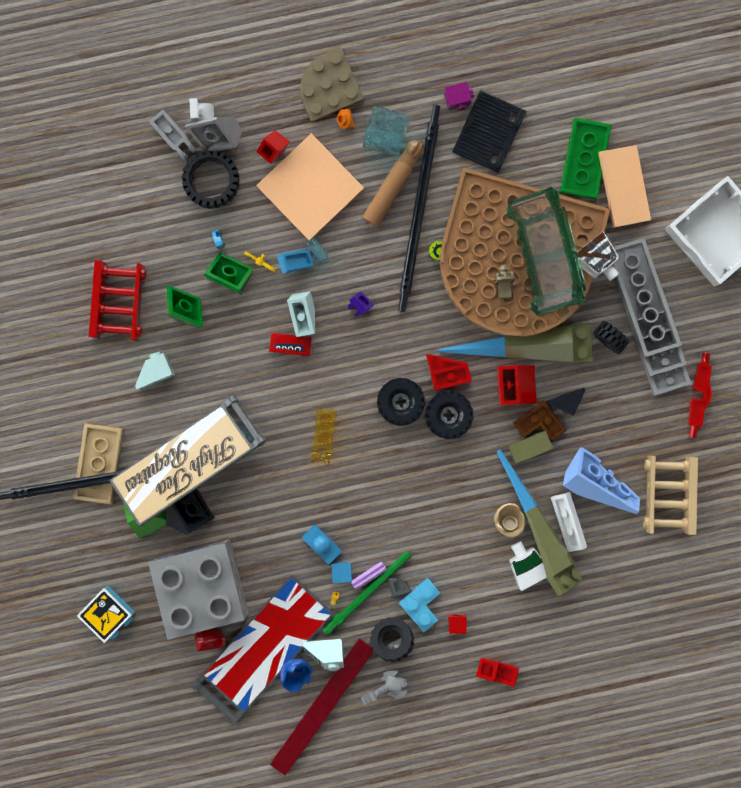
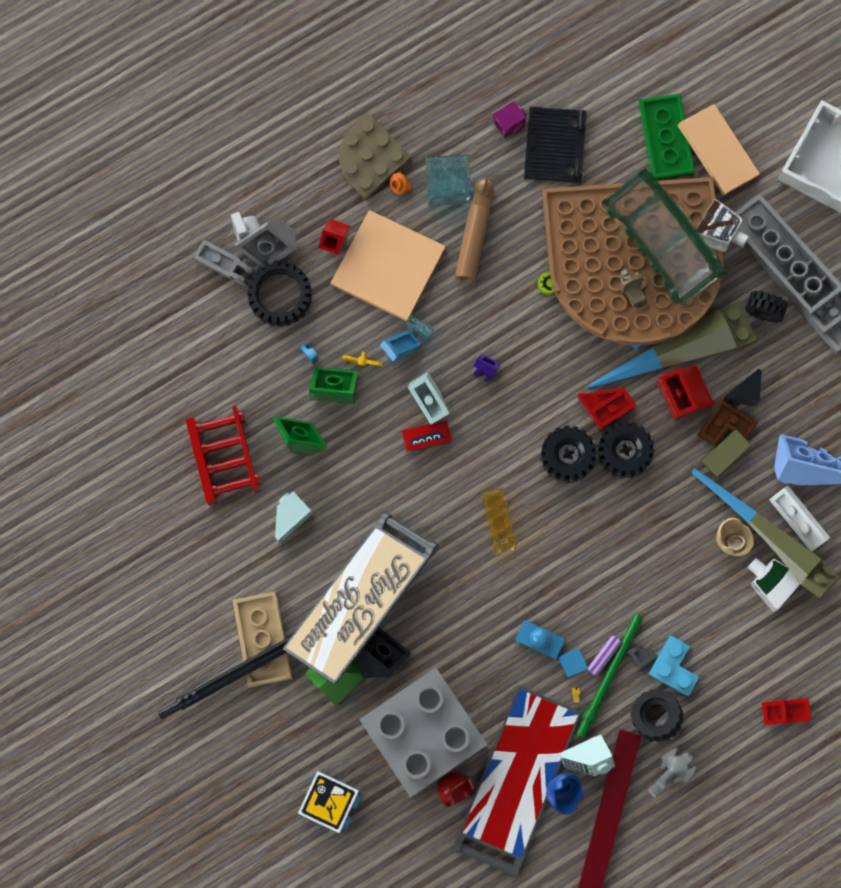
camera: 10 degrees left, 10 degrees down
(430, 141) = (512, 249): black axle -> none
(457, 624) = (721, 674): red piece -> none

